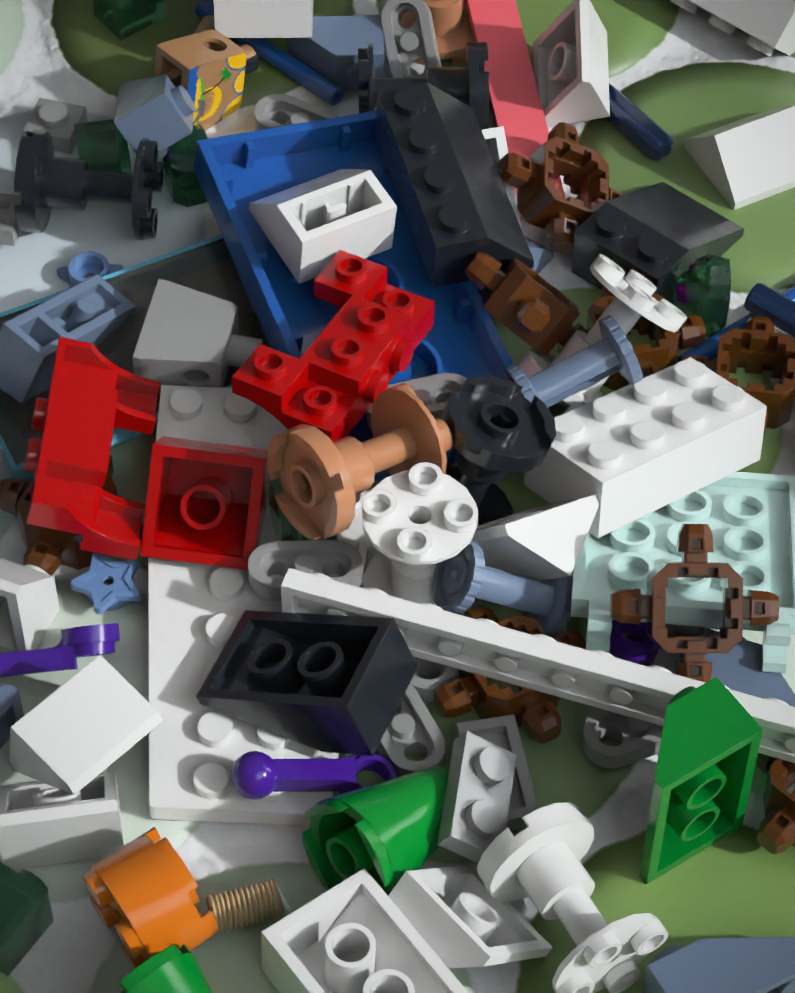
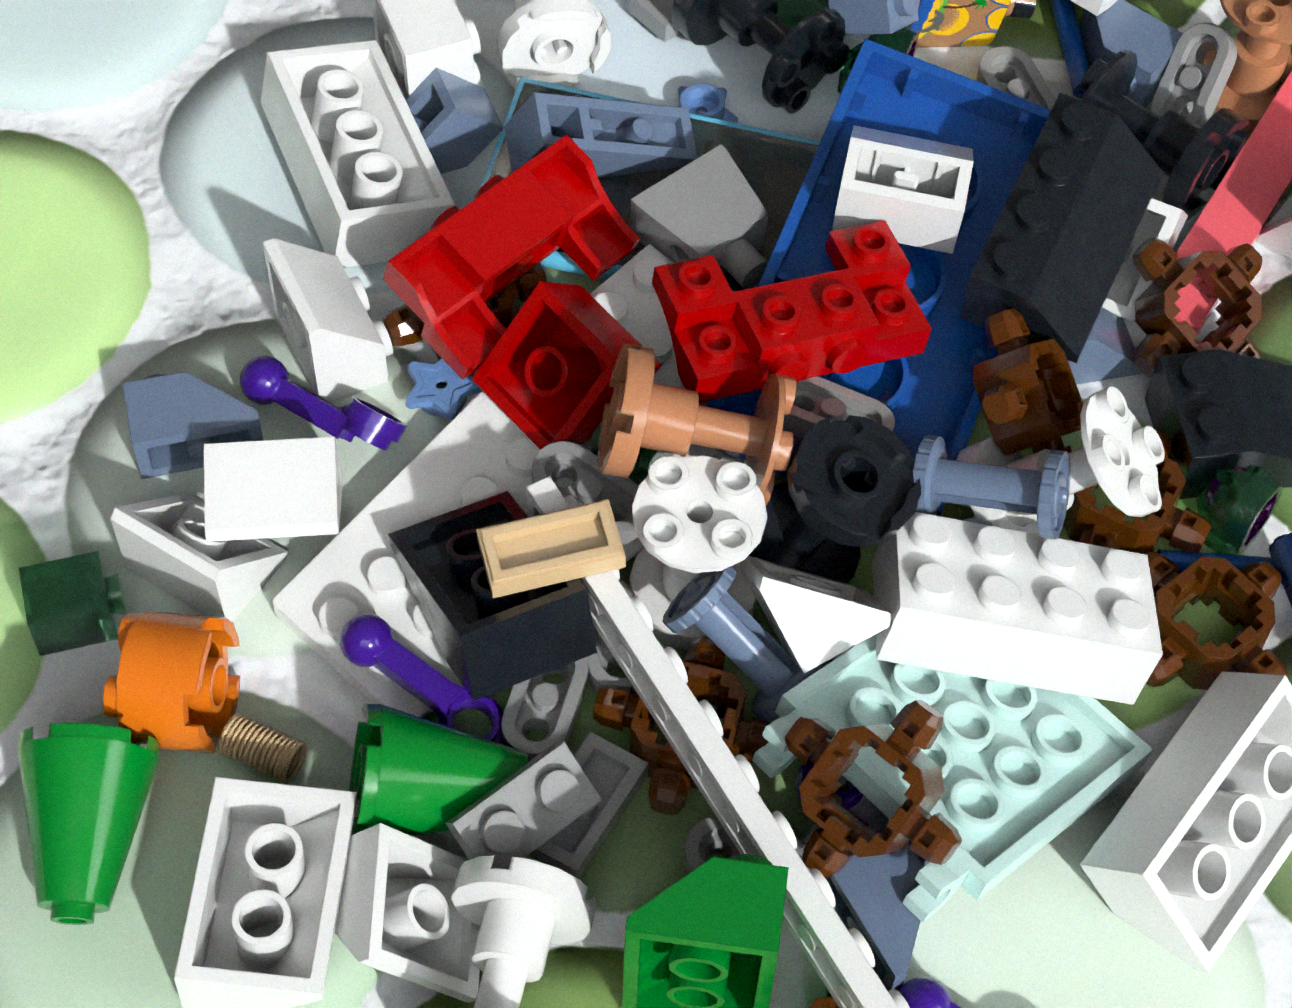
camera: 40 degrees right, 5 degrees up
(344, 610) = (551, 548): none -> tan tile

